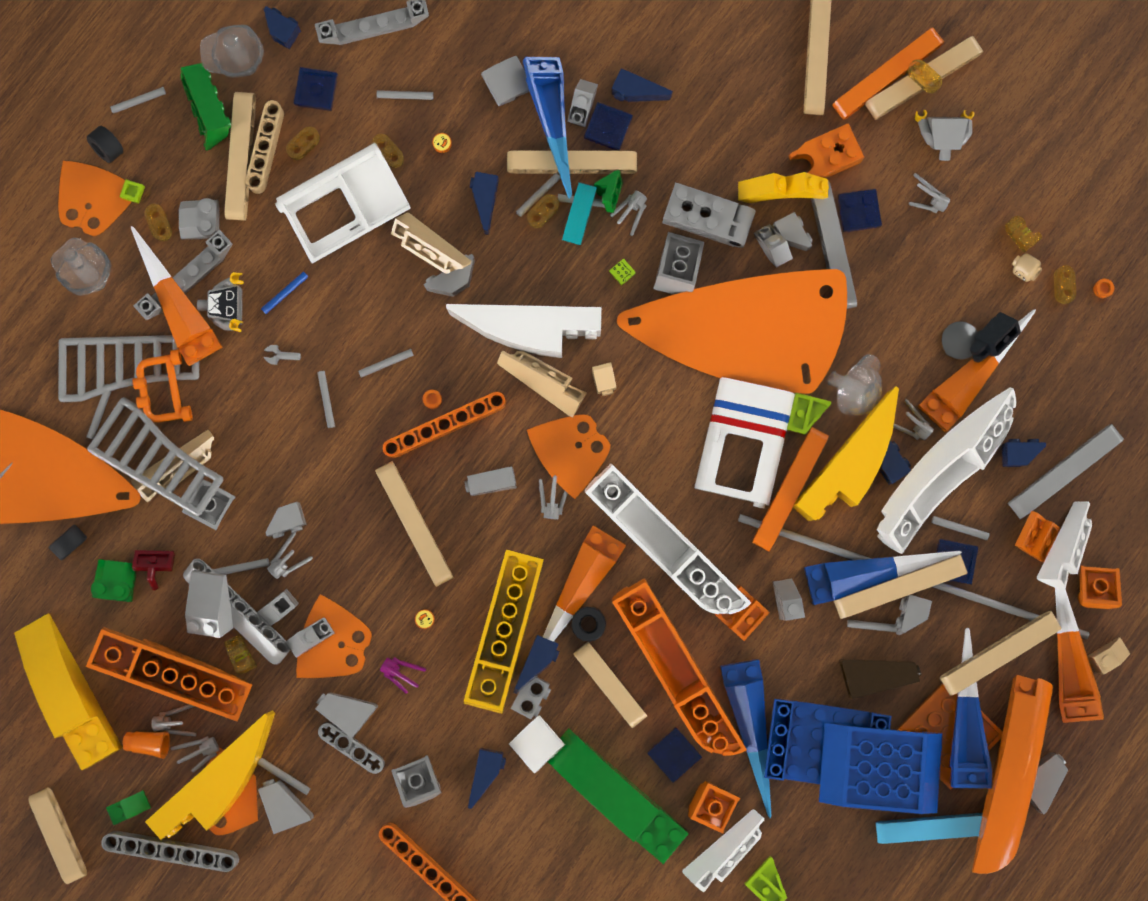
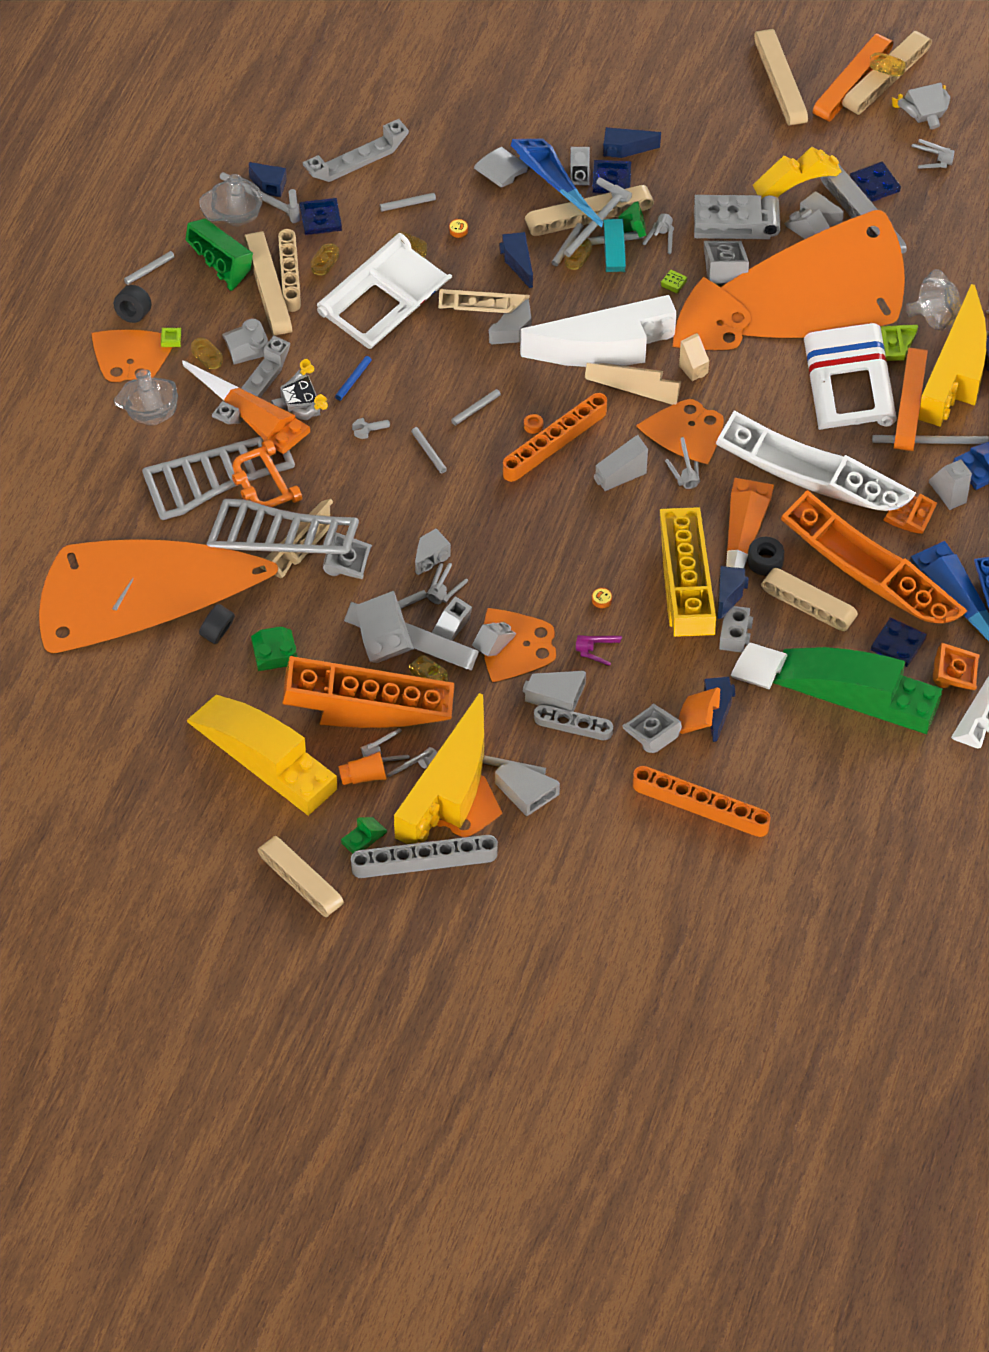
camera: 20 degrees left, 30 degrees down
(98, 415) = (204, 521): light grey piece -> none
(152, 562) = (310, 619): dark red plate -> none
(285, 67) = (291, 209): none -> light grey bar
(414, 524) = (559, 522): tan beam -> none
(461, 781) = (698, 710): none -> orange slope
(603, 159) = (618, 194): none -> light grey bar
(625, 330) = (702, 311): none -> orange piece
(821, 153) = (832, 137): orange brick -> none

